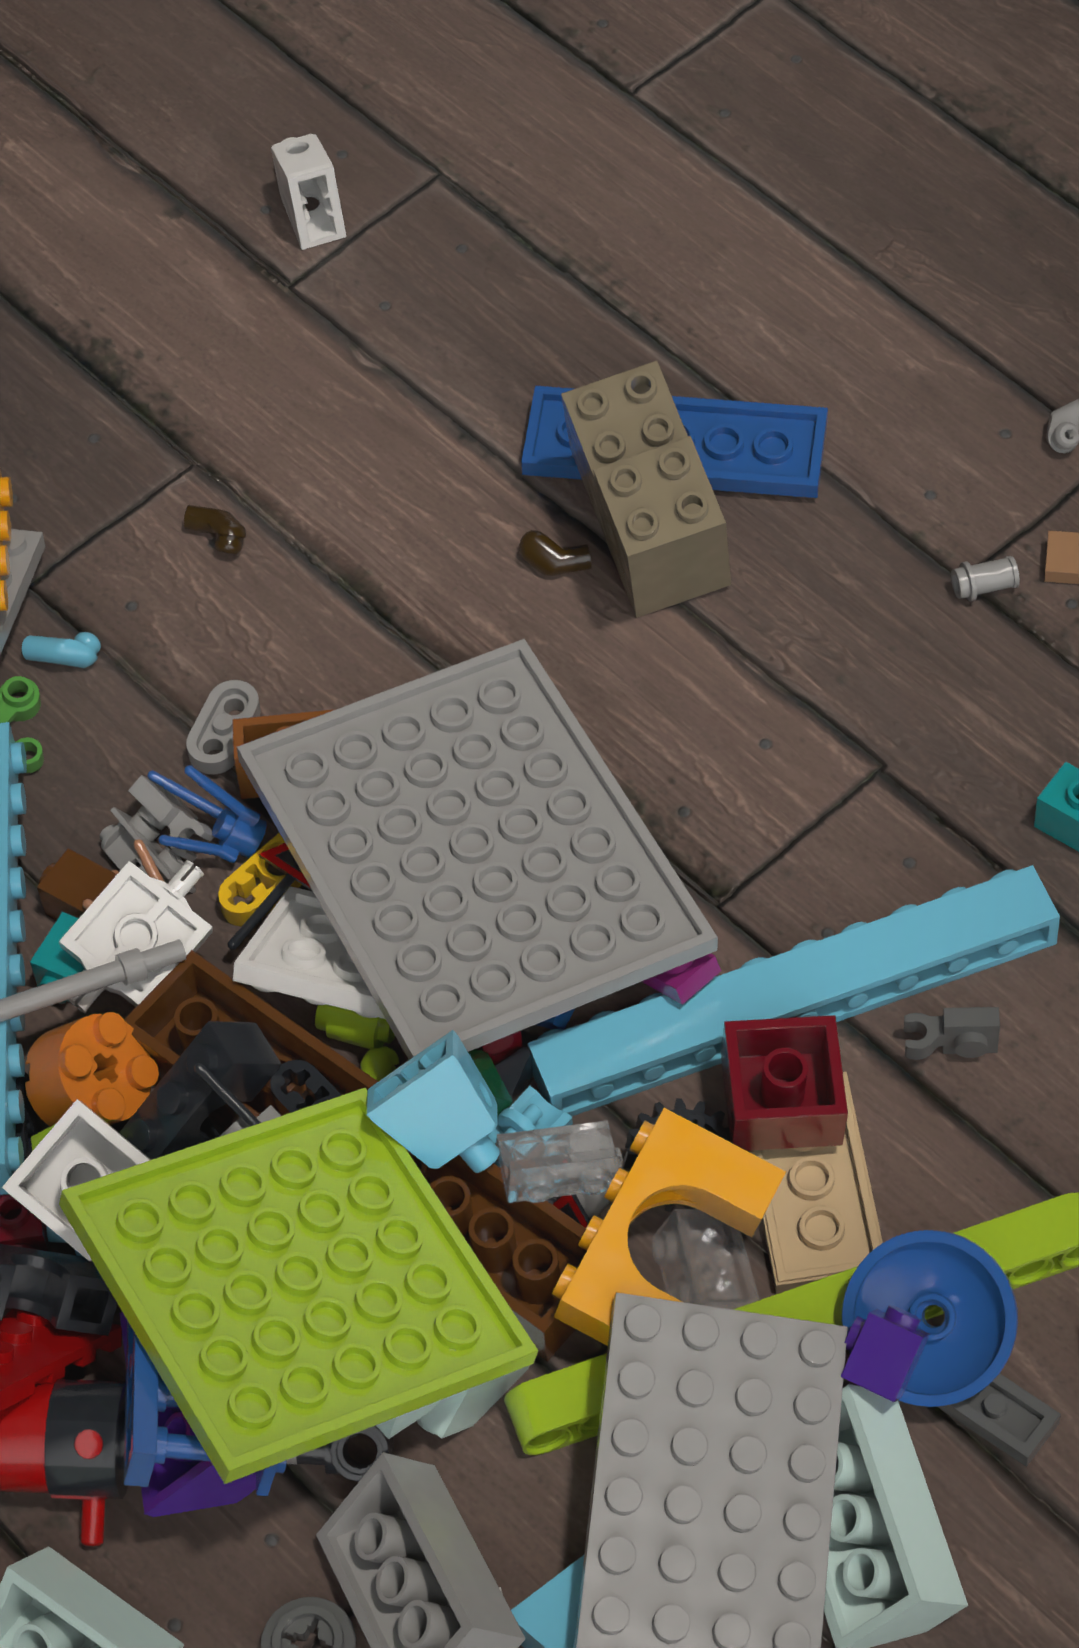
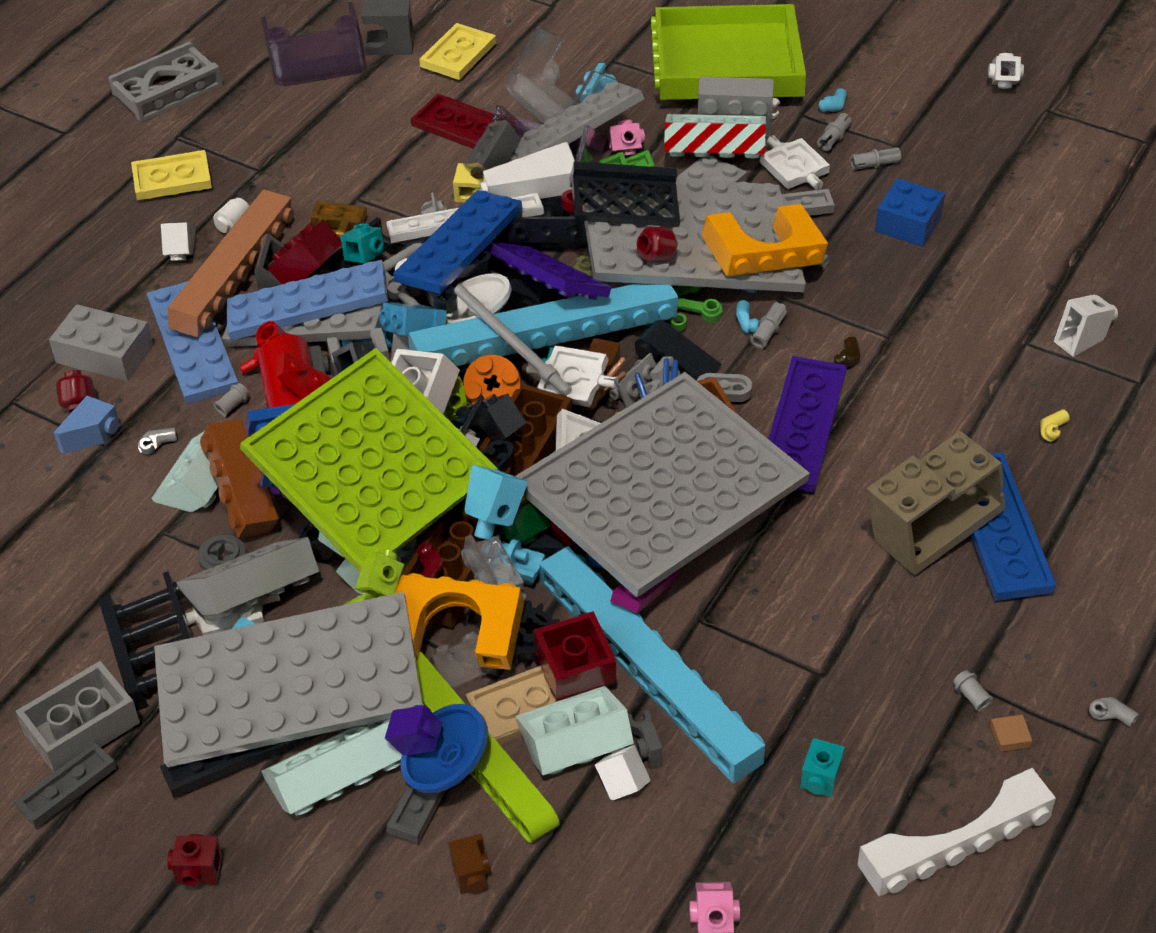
camera: 70 degrees right, 10 degrees down
(77, 787) = (668, 342): none -> black door
(101, 620) = (768, 325): none -> light grey axle
(165, 1560) = (238, 480): none -> dark orange brick
(331, 621) = (808, 413): none -> dark purple plate
(490, 313) = (1050, 424): none -> light yellow arm
(521, 1253) = (430, 560): none -> dark red arm
(559, 1326) = (371, 577): none -> lime brick
(911, 1130) = (575, 730): none -> light aqua slope
(1009, 1084) = (622, 772): none -> white panel

